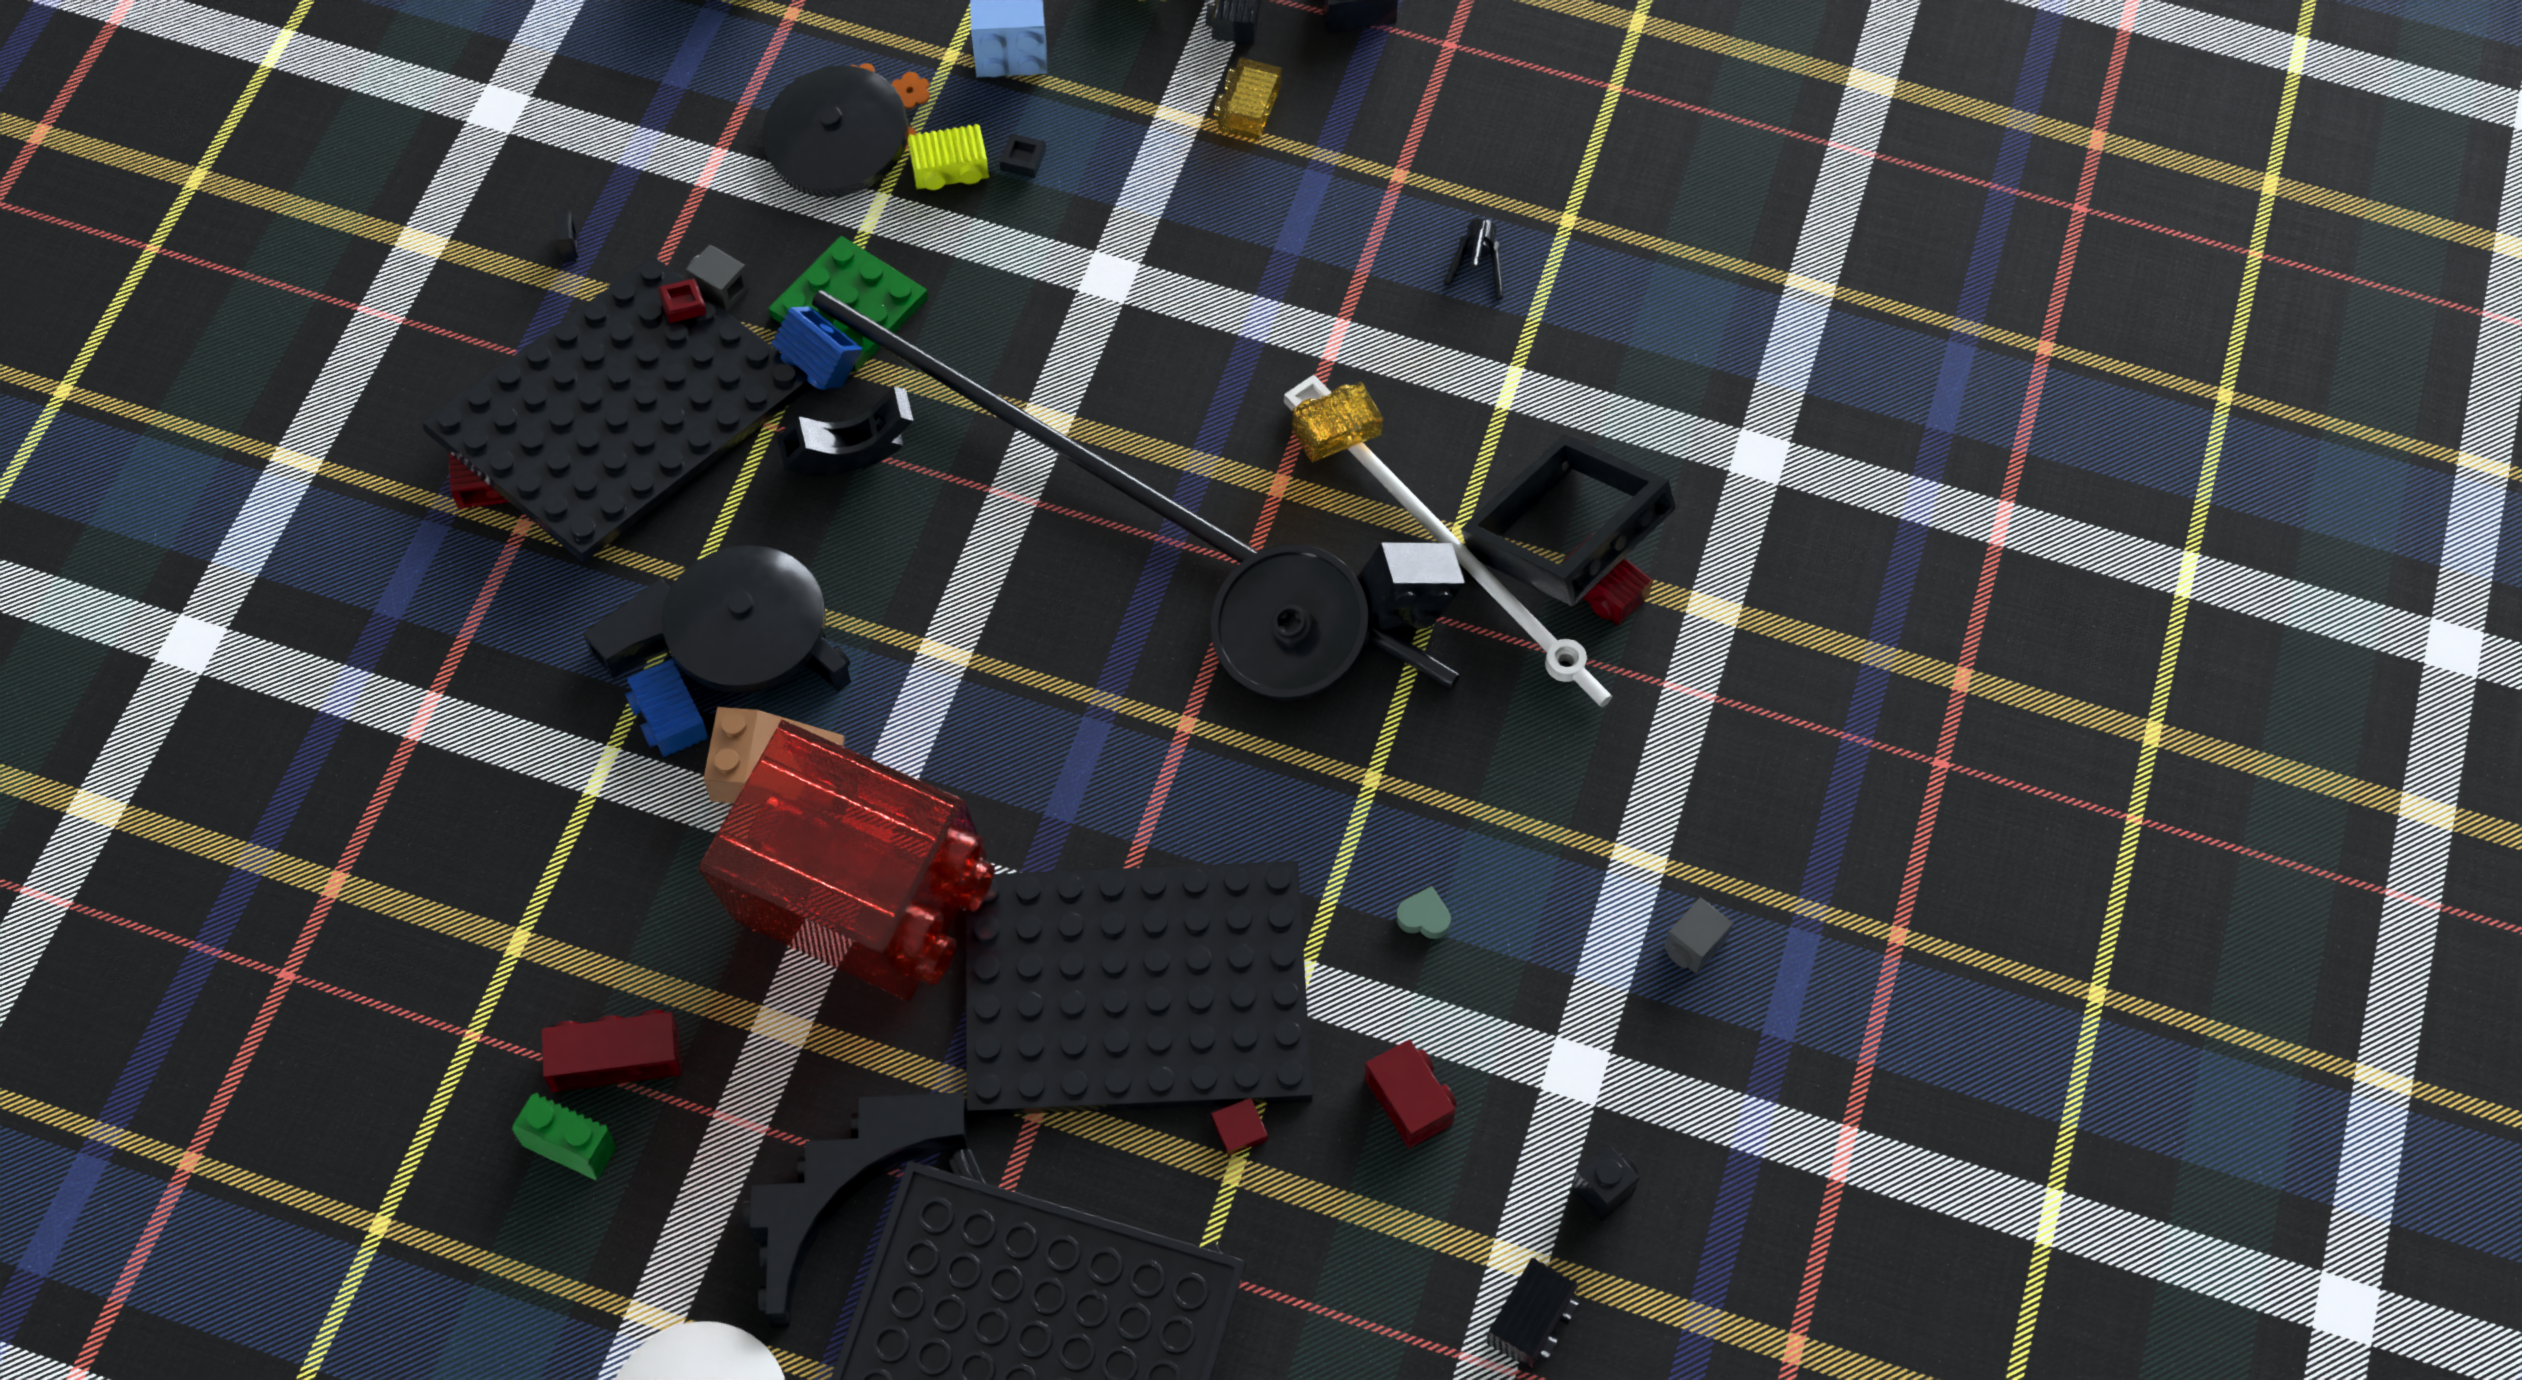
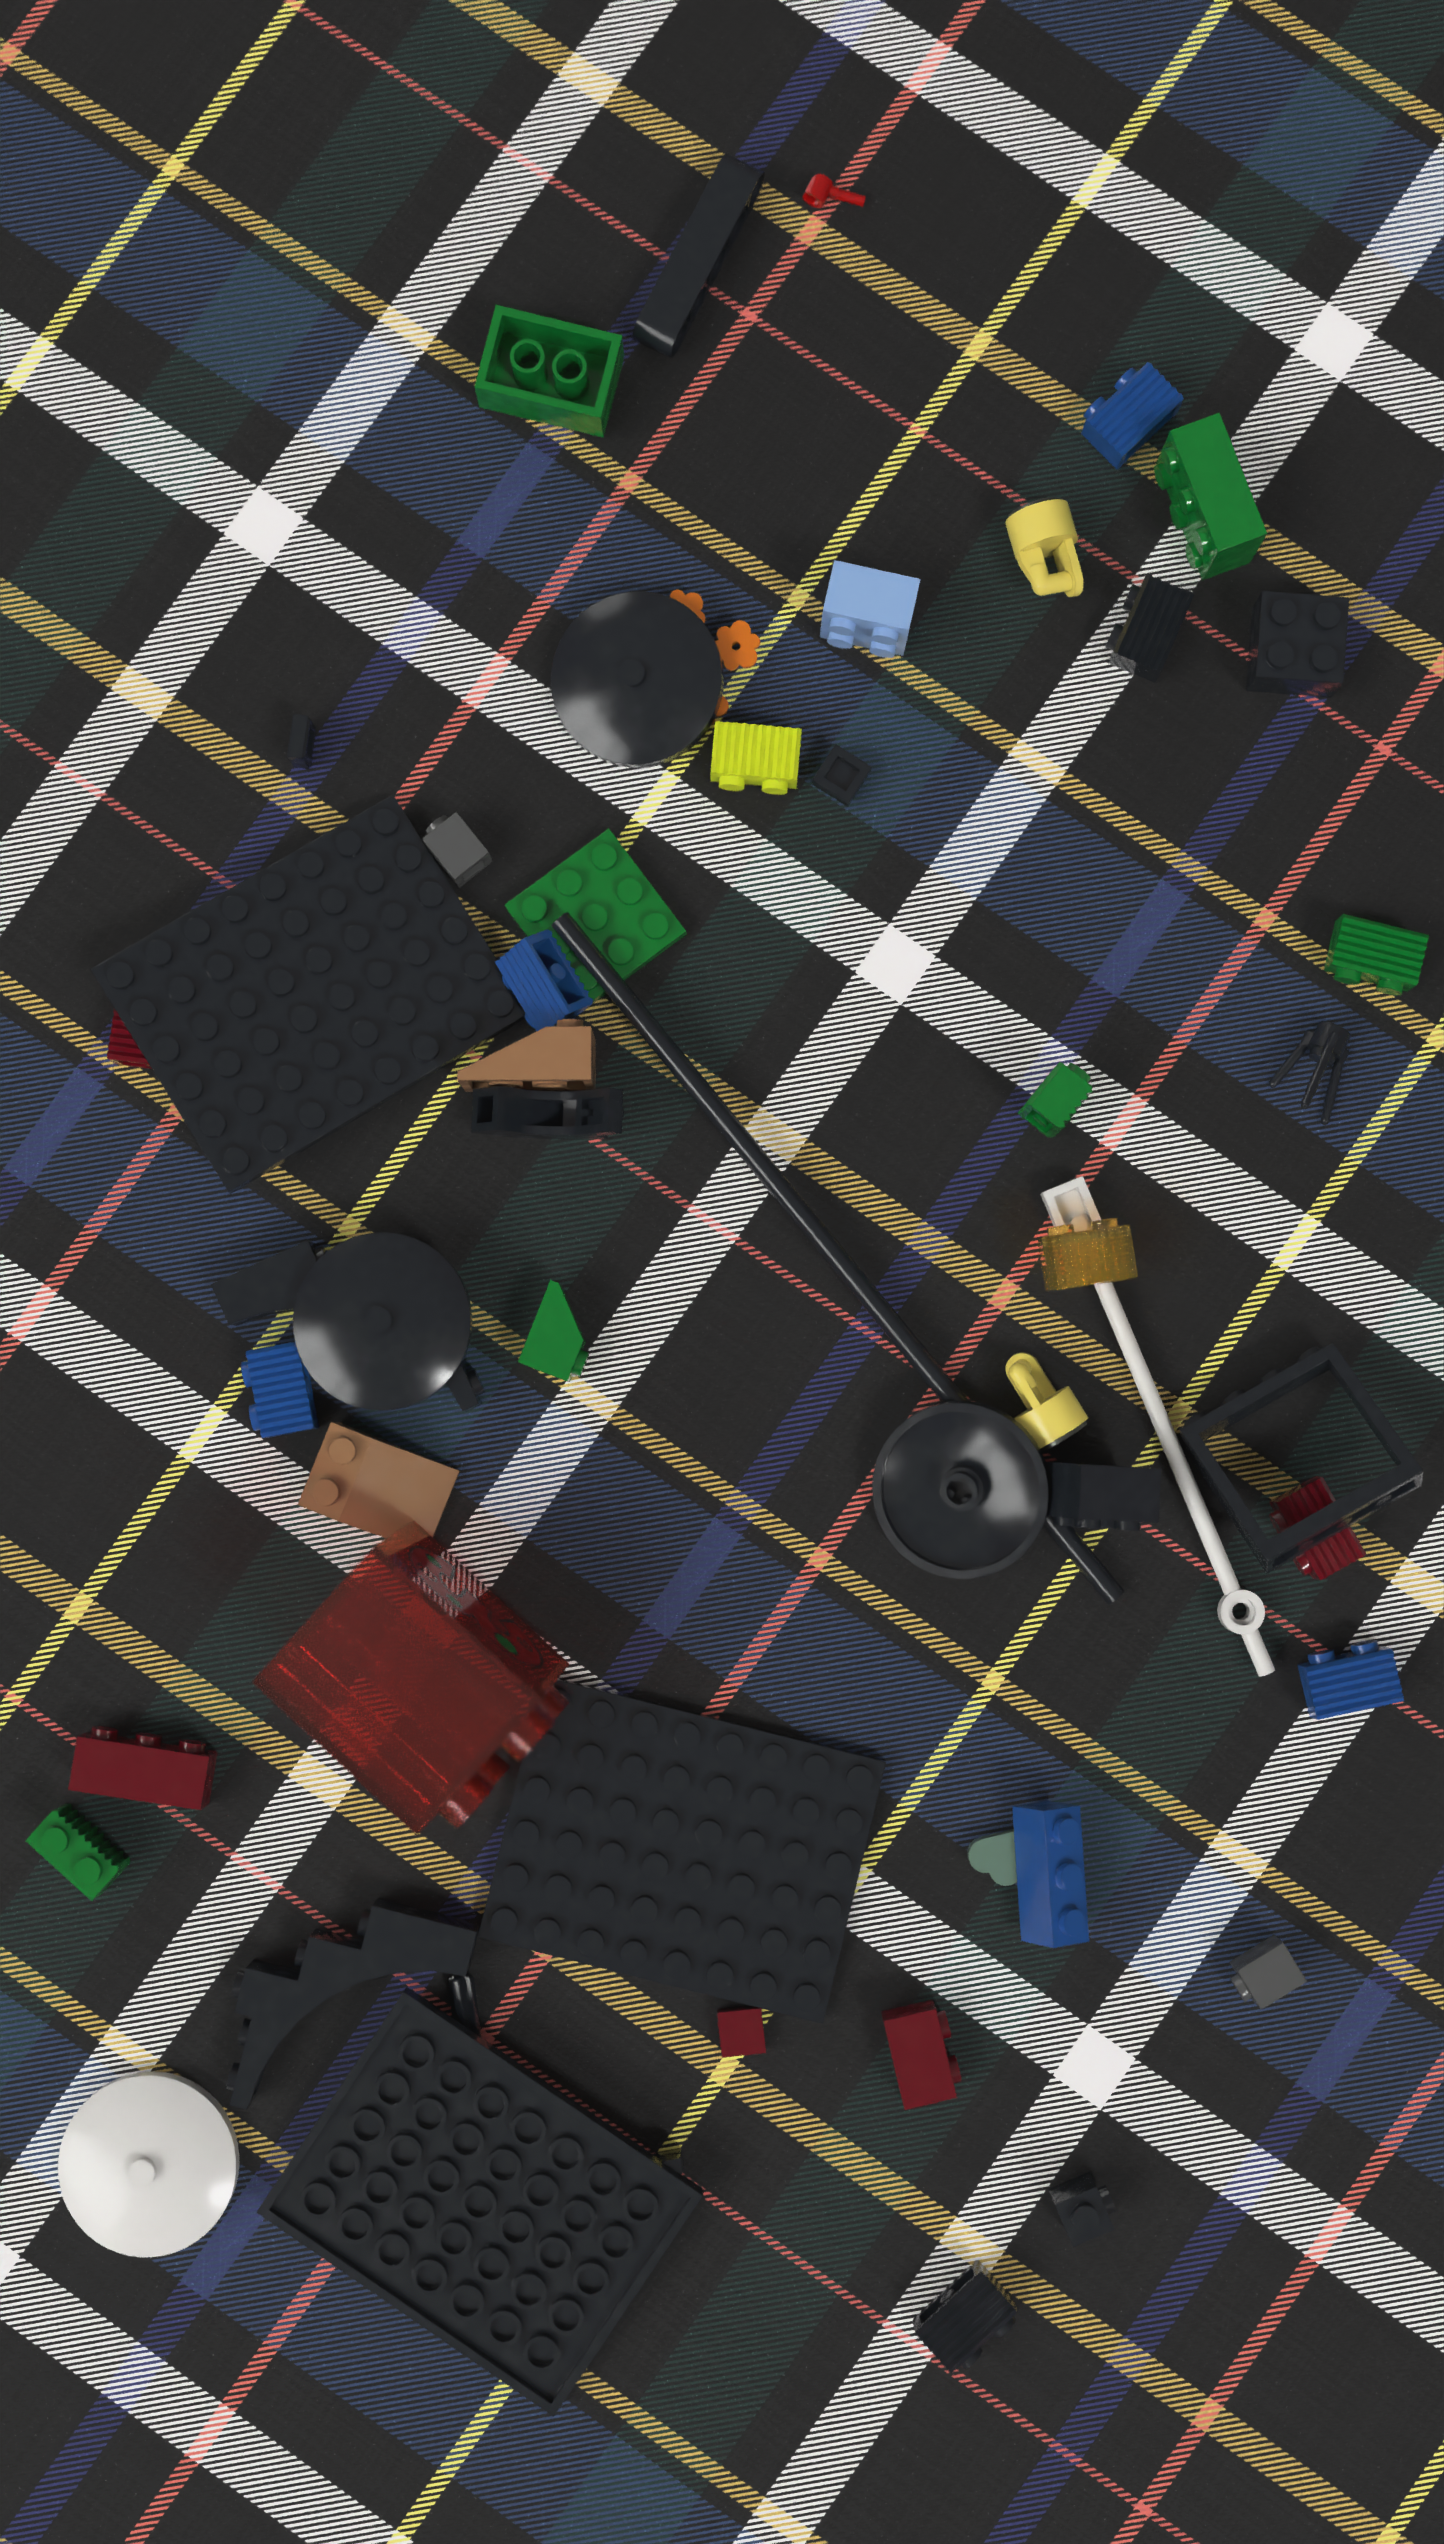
camera: 20 degrees right, 25 degrees up
(681, 300) = (408, 877): dark red tile -> none
(829, 391) = (544, 1061): none -> medium nougat slope
(900, 607) = (555, 1338): none -> green slope
(1248, 98) = (1124, 769): clear yellow brick -> none
(1271, 321) = (1057, 1099): none -> green brick
(1347, 542) = (1049, 1414): none -> light yellow piece
(1474, 903) = (1050, 1873): none -> blue brick
(1494, 169) = (1375, 954): none -> green brick
(1679, 686) = (1350, 1680): none -> blue brick

